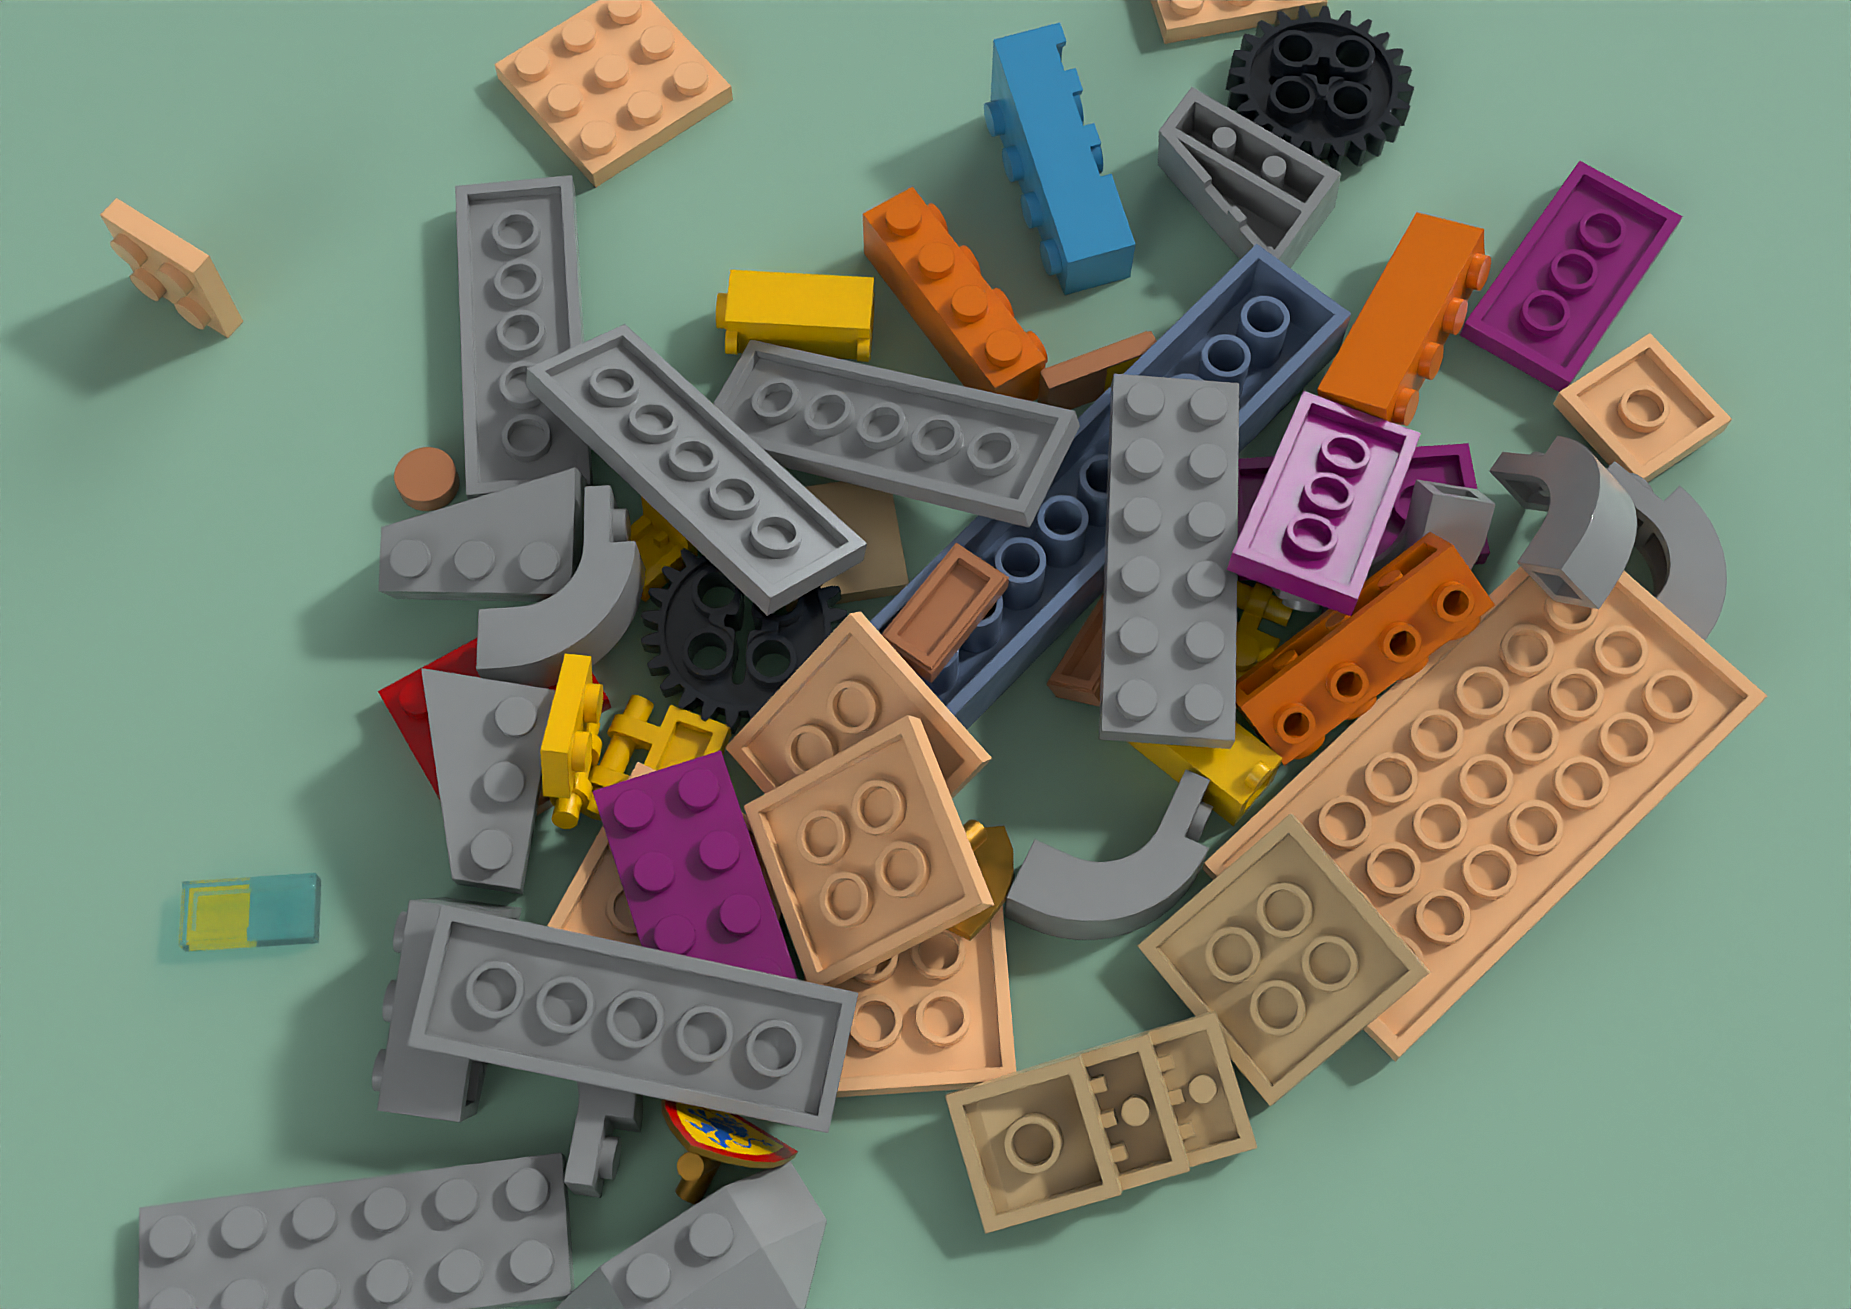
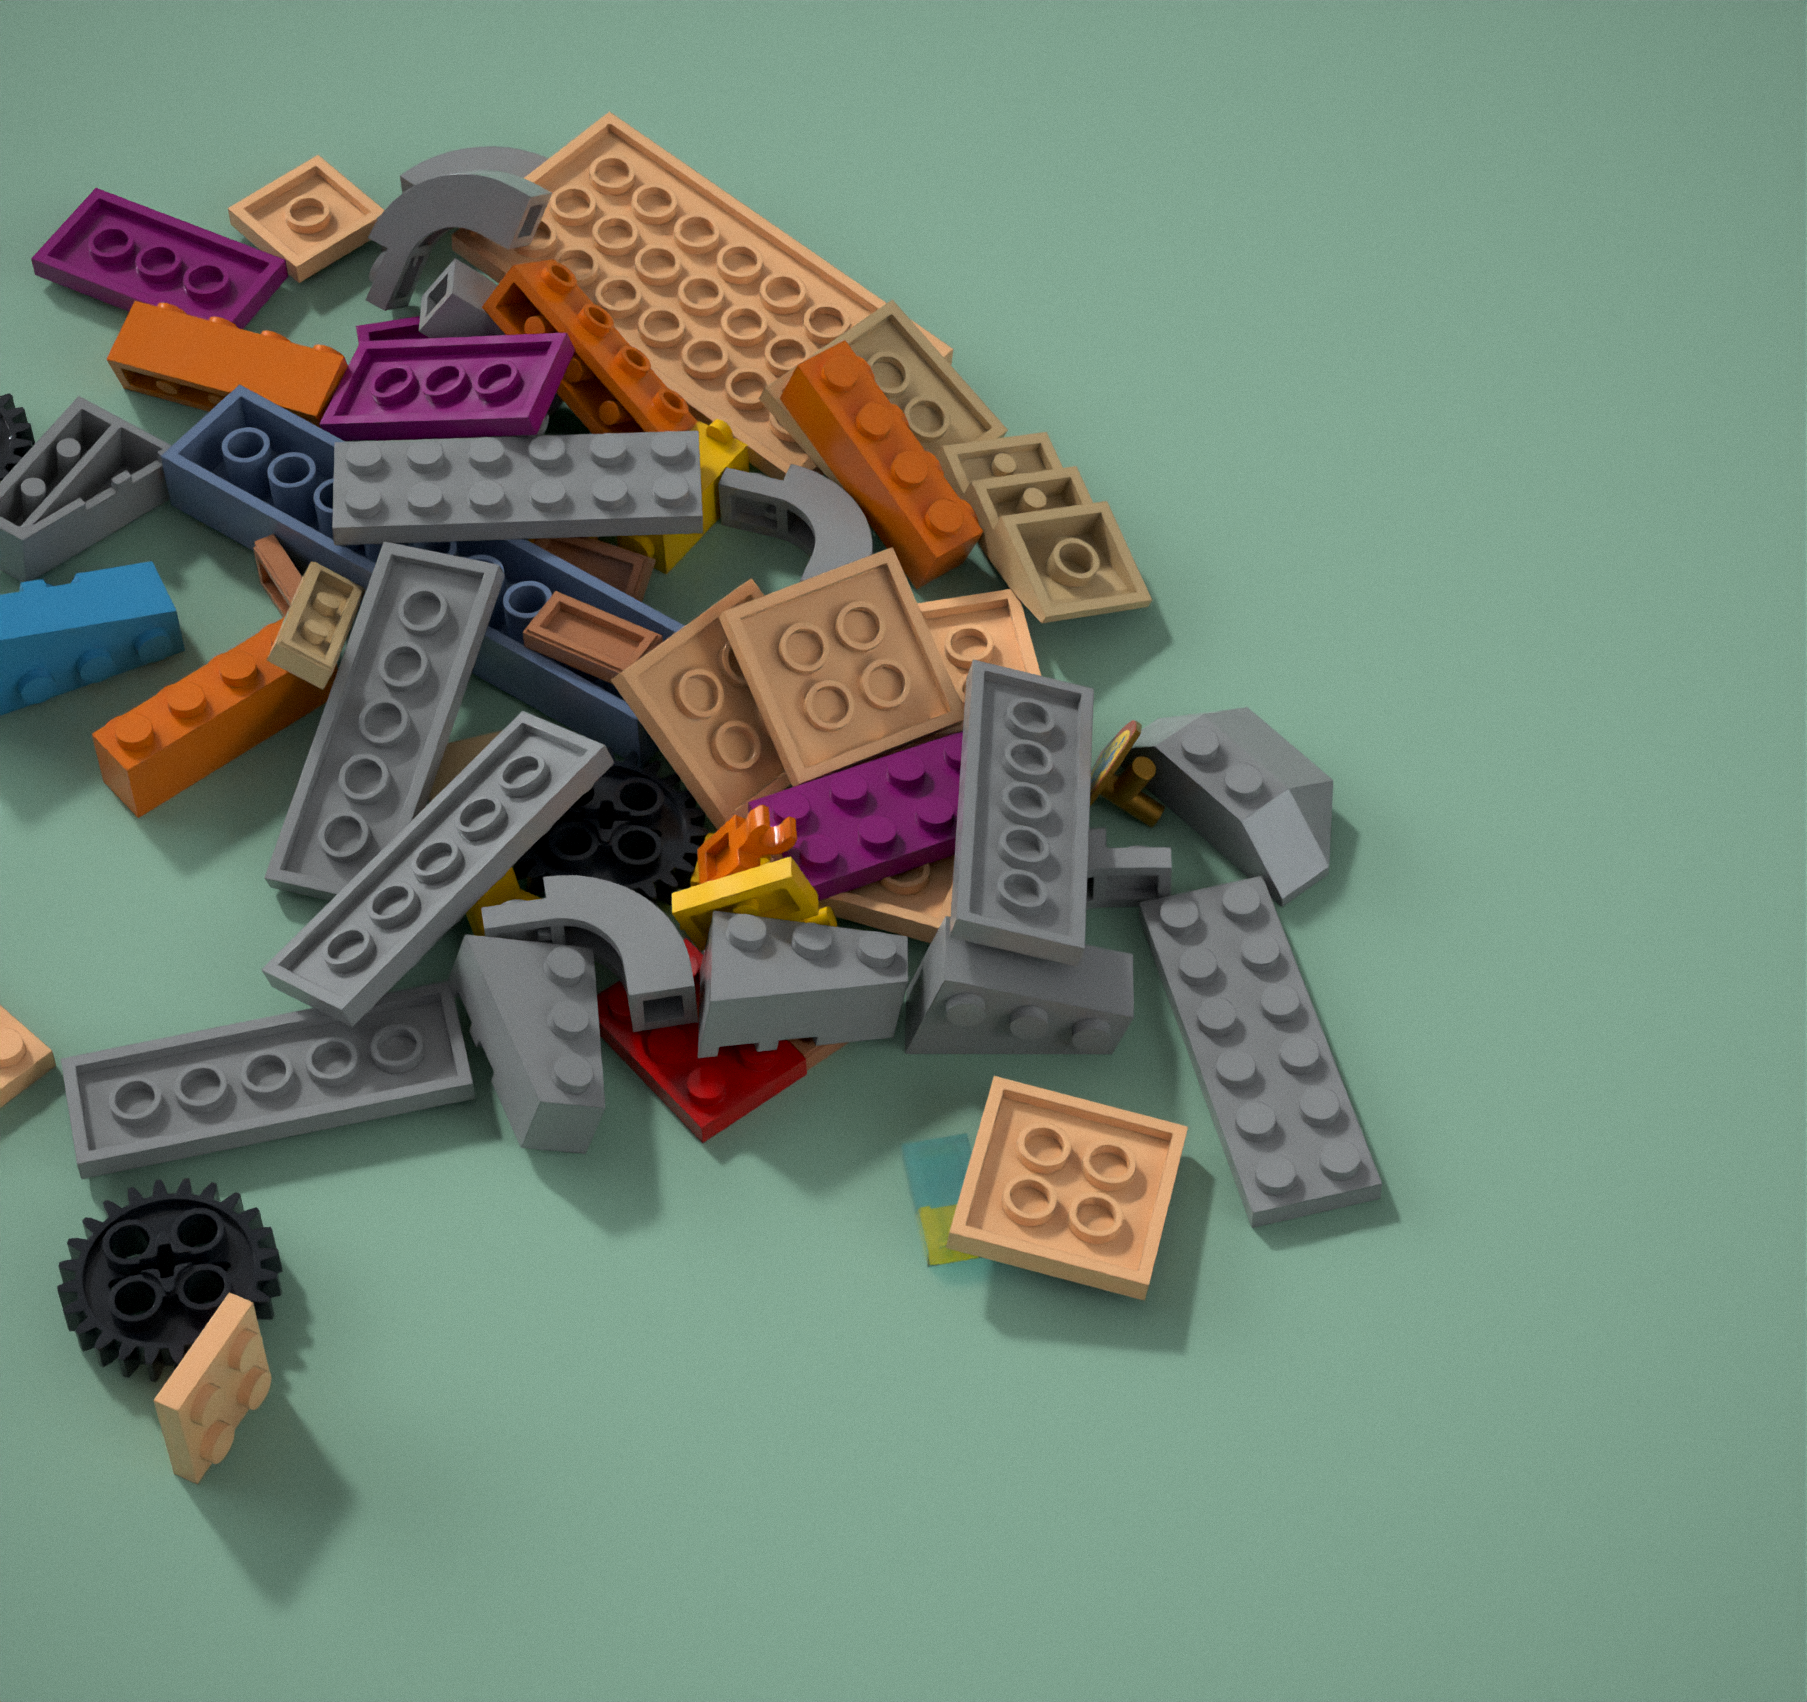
camera: 95 degrees left, 15 degrees down
(205, 1021) = (1068, 1188): none -> light nougat plate
(272, 254) = (167, 1276): none -> black gear
(426, 479) = (446, 1141): nougat tile -> none
(657, 736) = (742, 843): none -> orange plate
(799, 312) = (235, 838): yellow brick -> none
(1001, 361) = (316, 625): none -> tan tile
(1178, 935) = (881, 463): none -> orange brick

